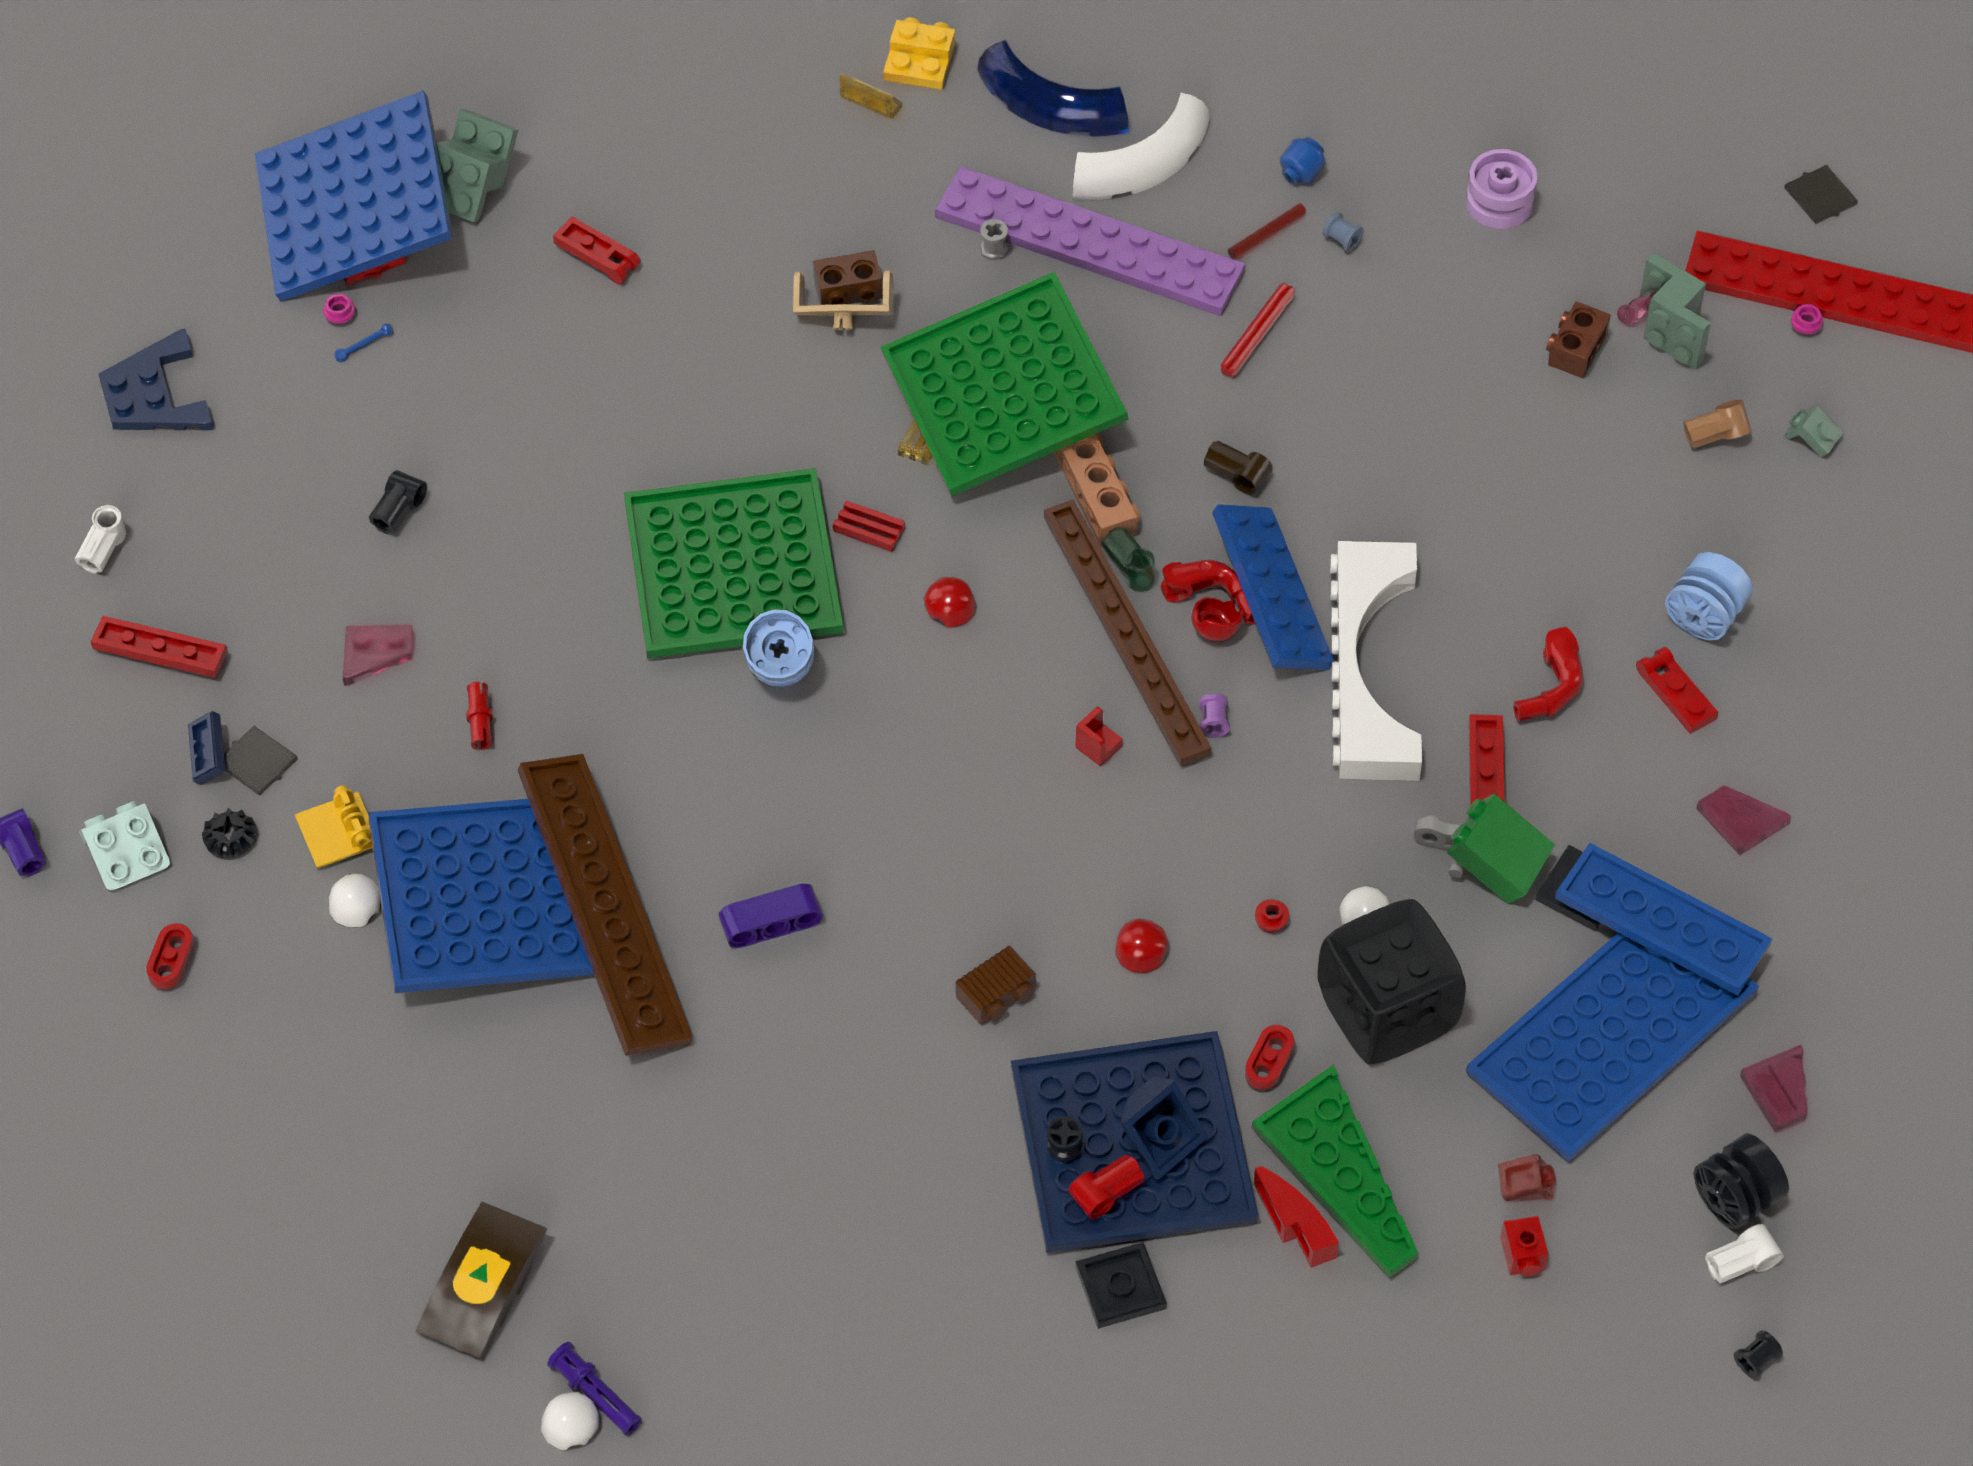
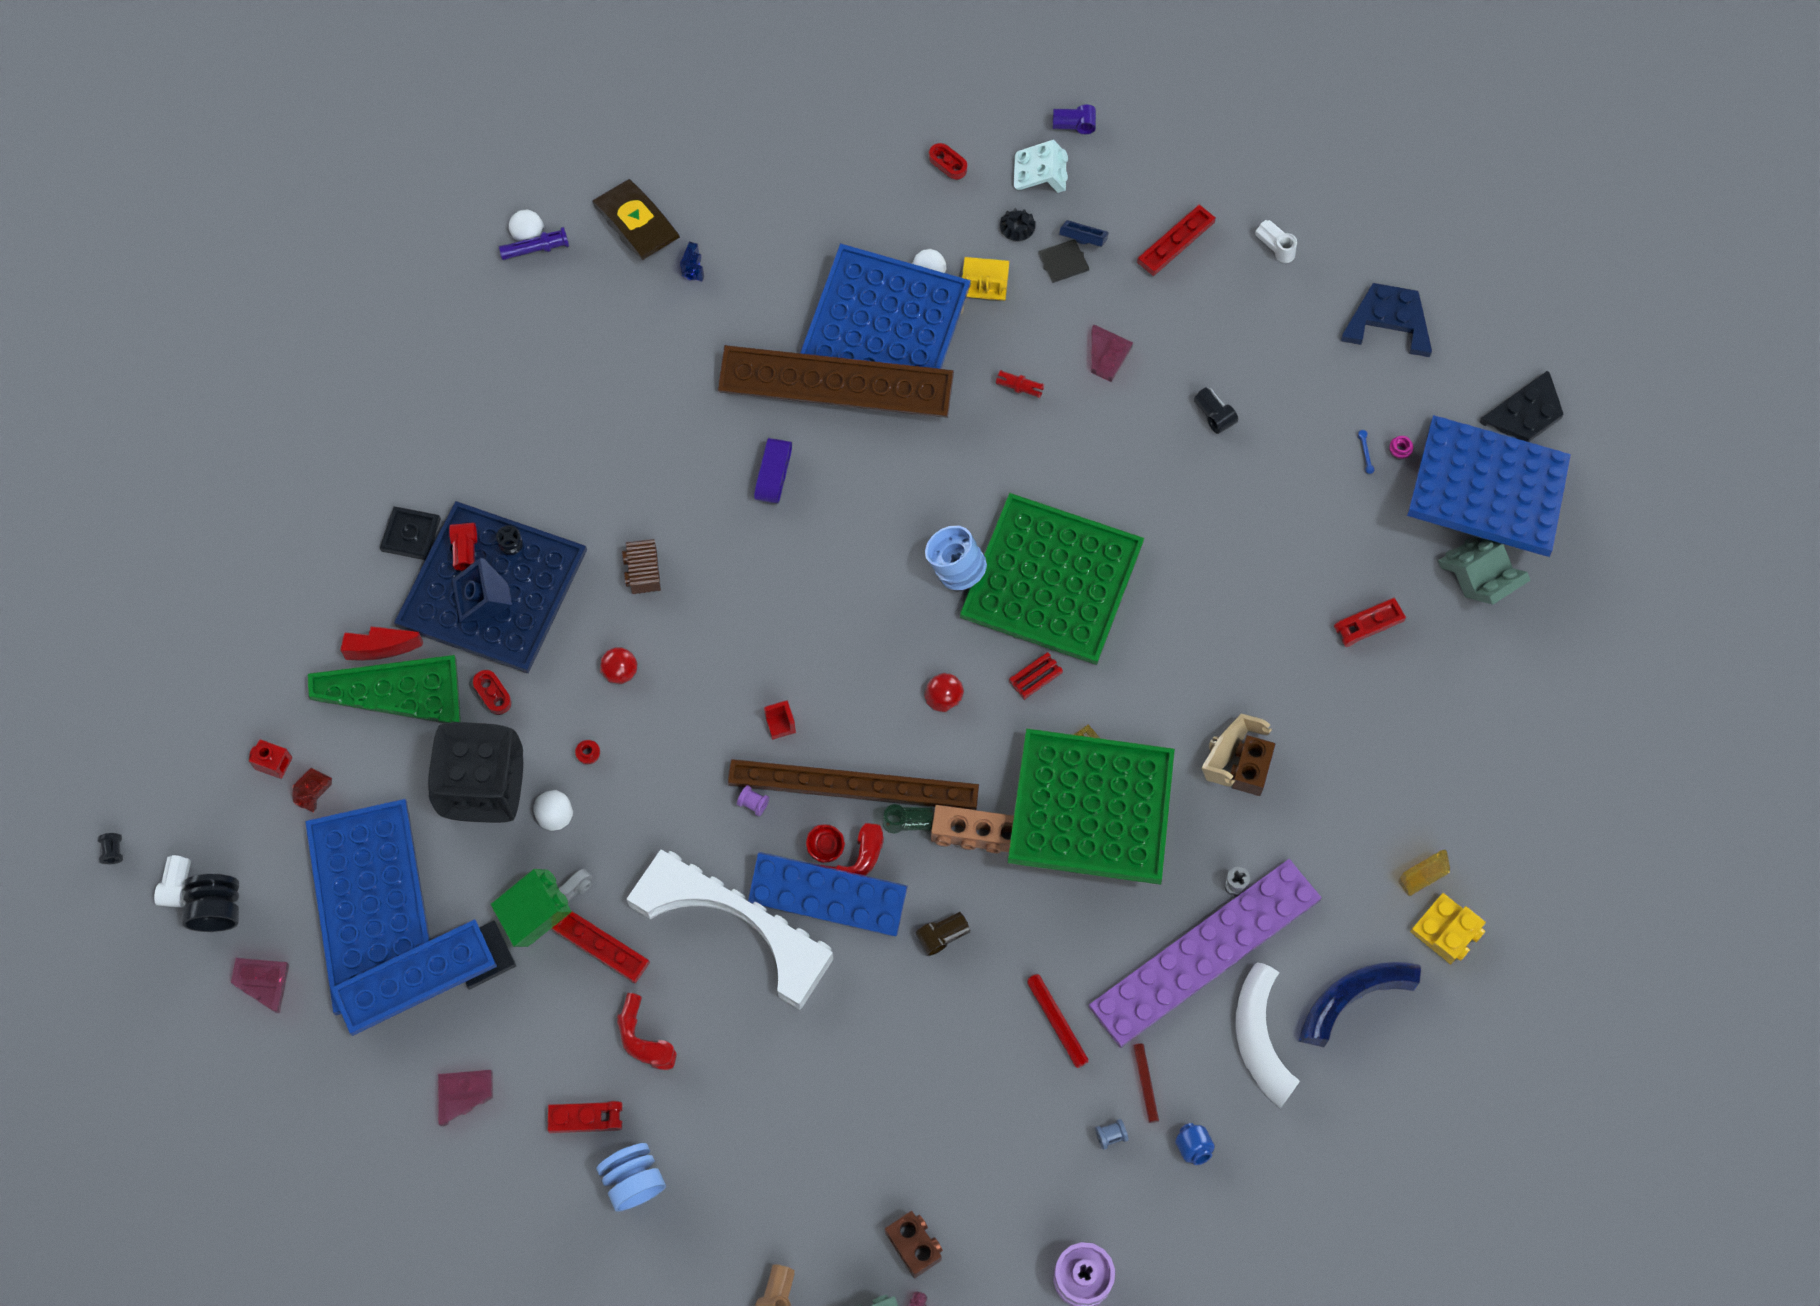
camera: 120 degrees right, 10 degrees up
(211, 214) = (1528, 410): none -> black wing
(512, 1177) = (690, 263): none -> clear blue bracket

